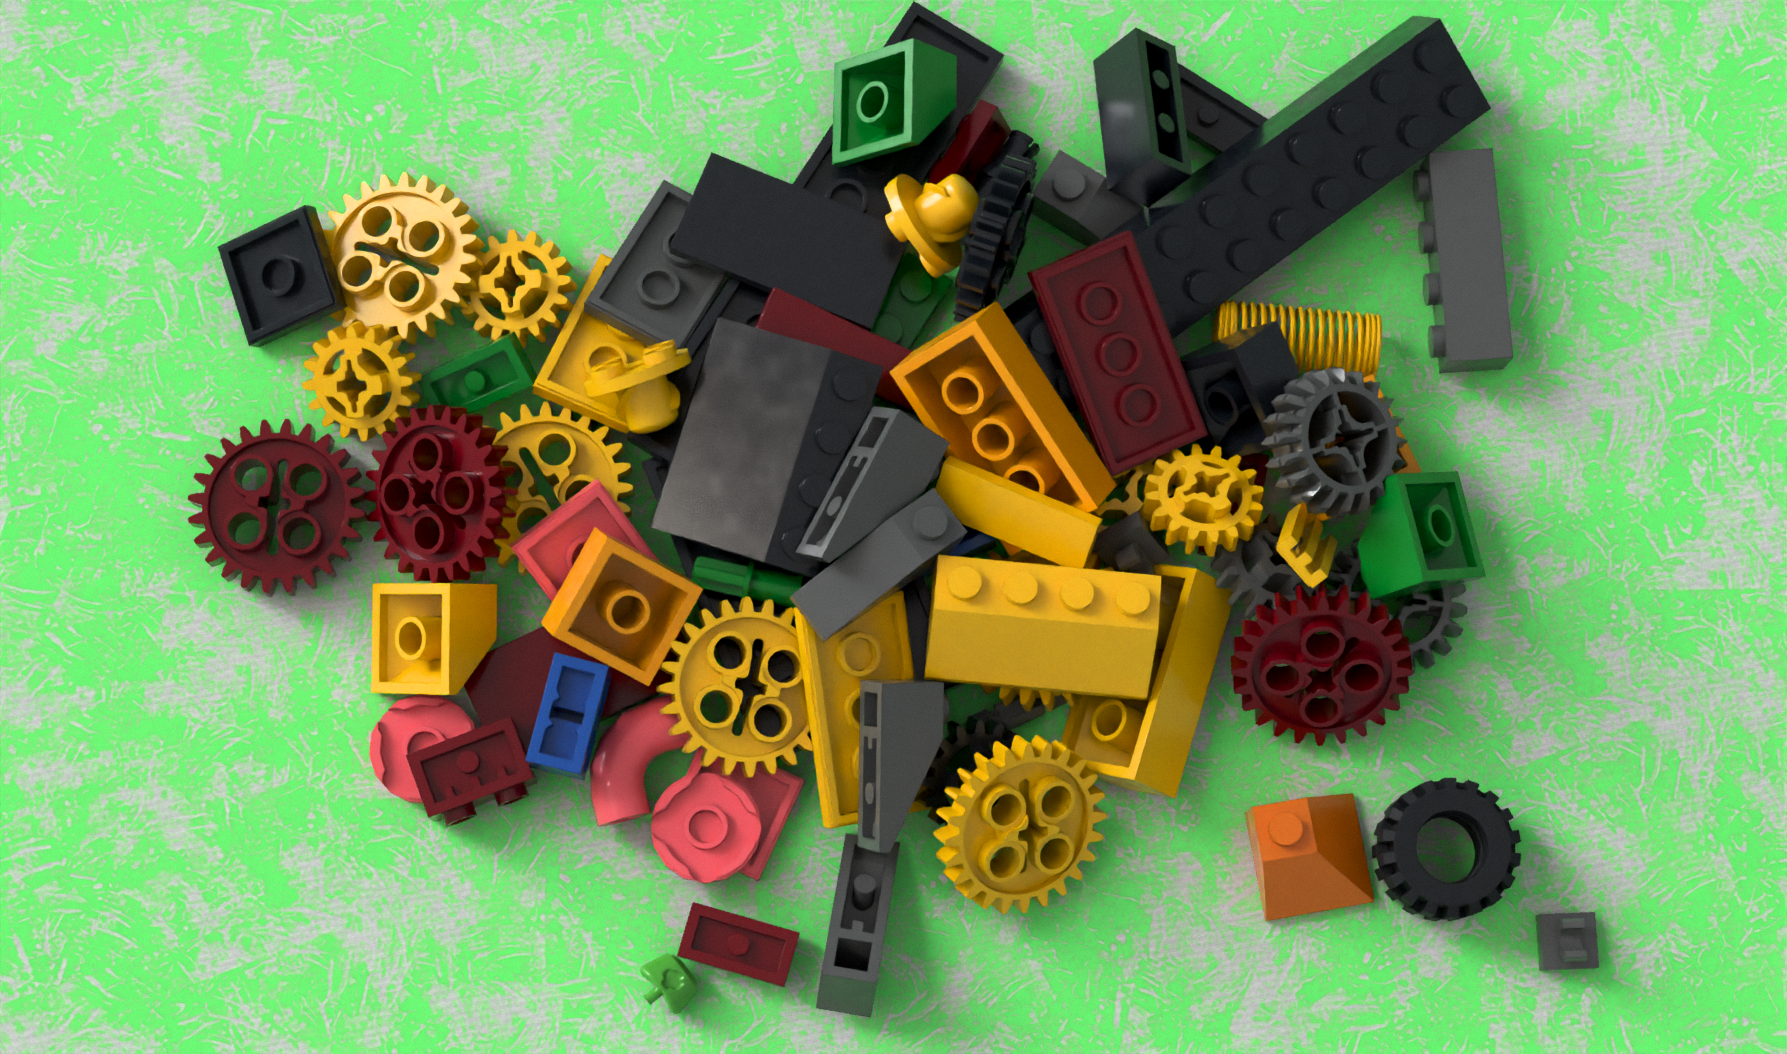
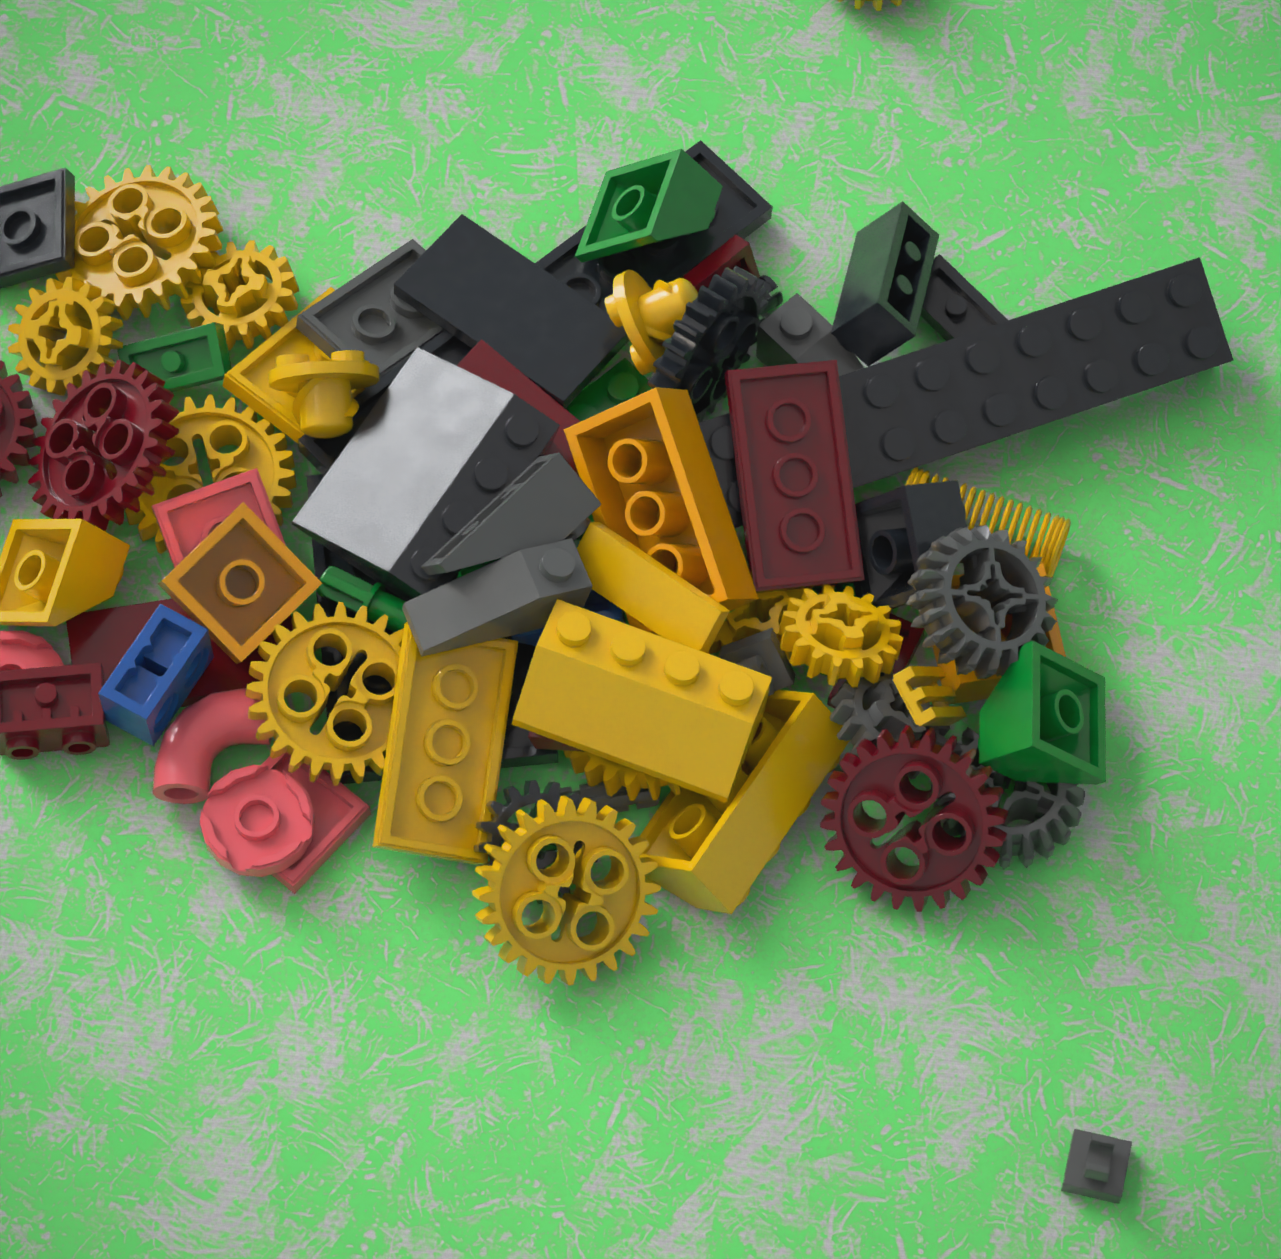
camera: 20 degrees right, 15 degrees down
(671, 981) = (176, 956): bright green piece -> none
(738, 944) = (253, 940): dark red plate -> none
(857, 929) = (375, 955): dark grey slope -> none
(896, 748) = (469, 771): dark grey slope -> none
(1308, 855) = (853, 1008): orange slope -> none
(1464, 261) = (1171, 499): dark grey brick -> none
(1490, 835) = (1002, 992): black tyre -> none

